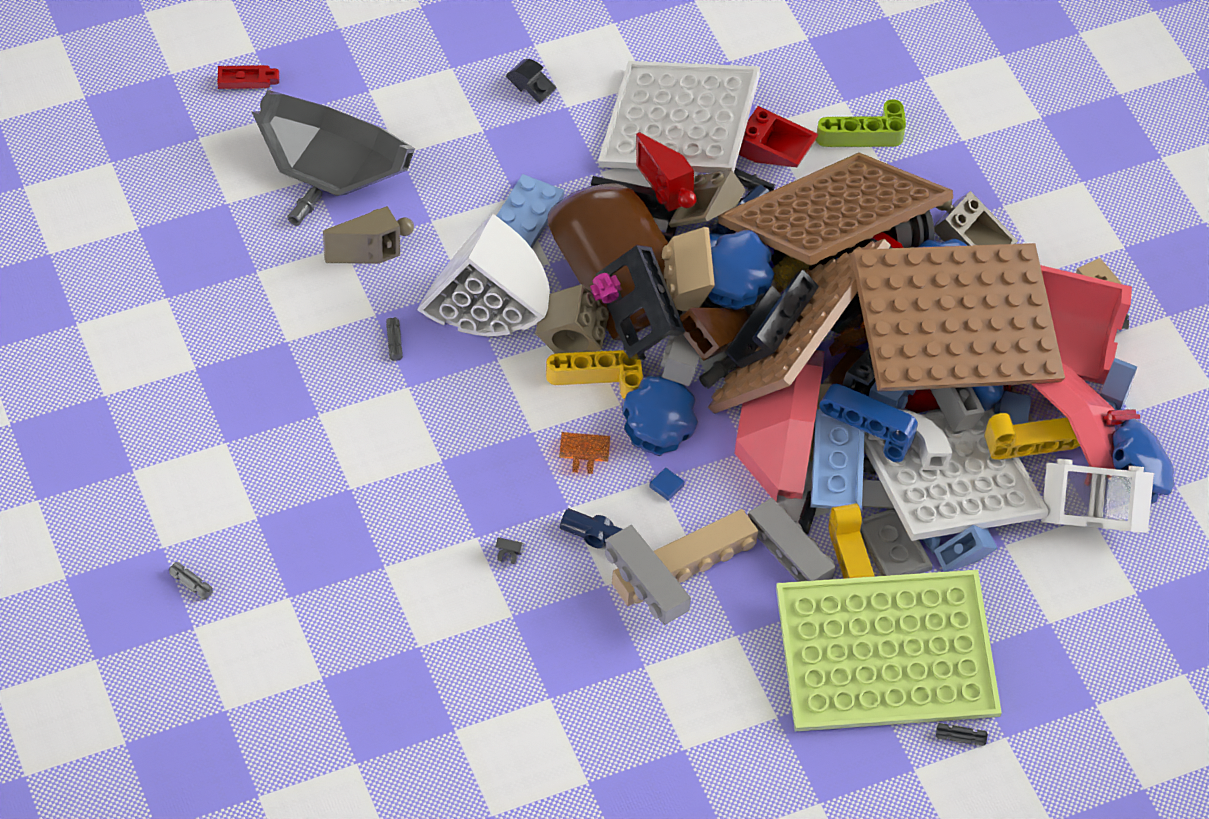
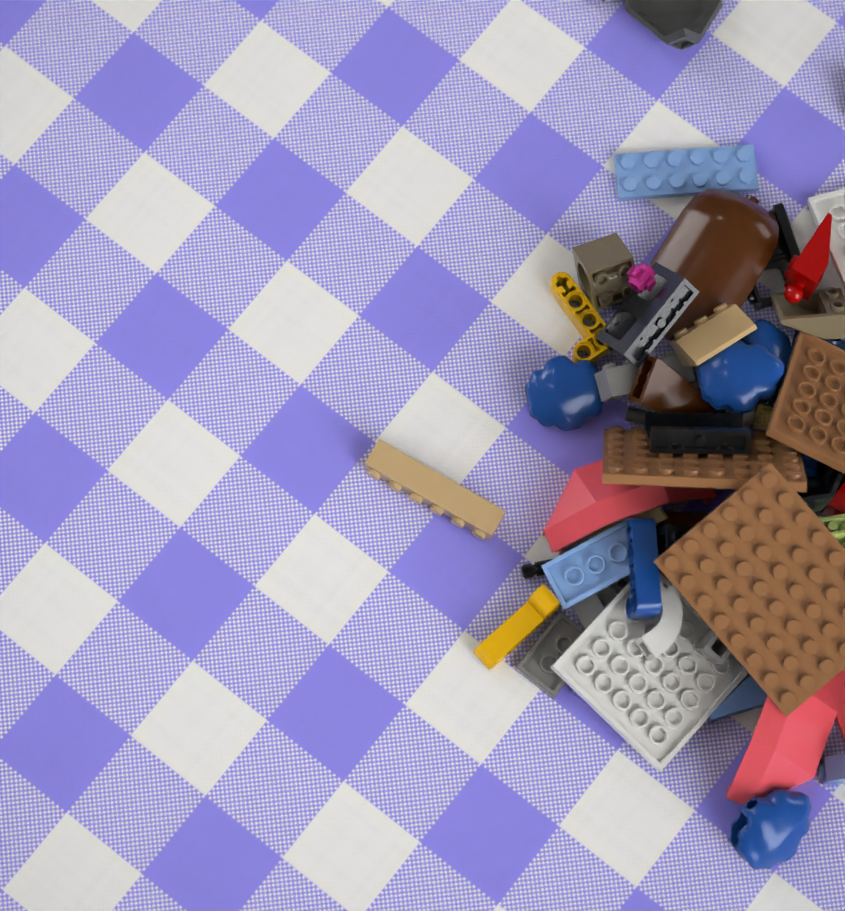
camera: 60 degrees right, 20 degrees up
(190, 580) = (182, 123): axle -> none
(366, 239) = (594, 61): dark tan slope -> none
(394, 338) = (512, 140): dark grey axle -> none
(490, 284) = (604, 184): white brick -> none
(509, 546) = (360, 345): dark grey tile -> none
(584, 447) = (498, 350): clear orange hinge -> none
(593, 529) = (417, 407): dark blue piece -> none
(647, 575) = (384, 468): light grey brick -> none
(666, 484) = (502, 437): blue tile -> none
(790, 544) = (498, 570): light grey brick -> none
(887, 650) = (438, 702): yellowish green plate -> none
(961, 734) = (397, 803): black axle -> none
(965, 548) = (584, 718): medium blue slope -> none
(1027, 439) = (721, 712): yellow beam -> none
(1098, 495) = (703, 805): white window -> none
(1117, 417) = (806, 787): red axle -> none

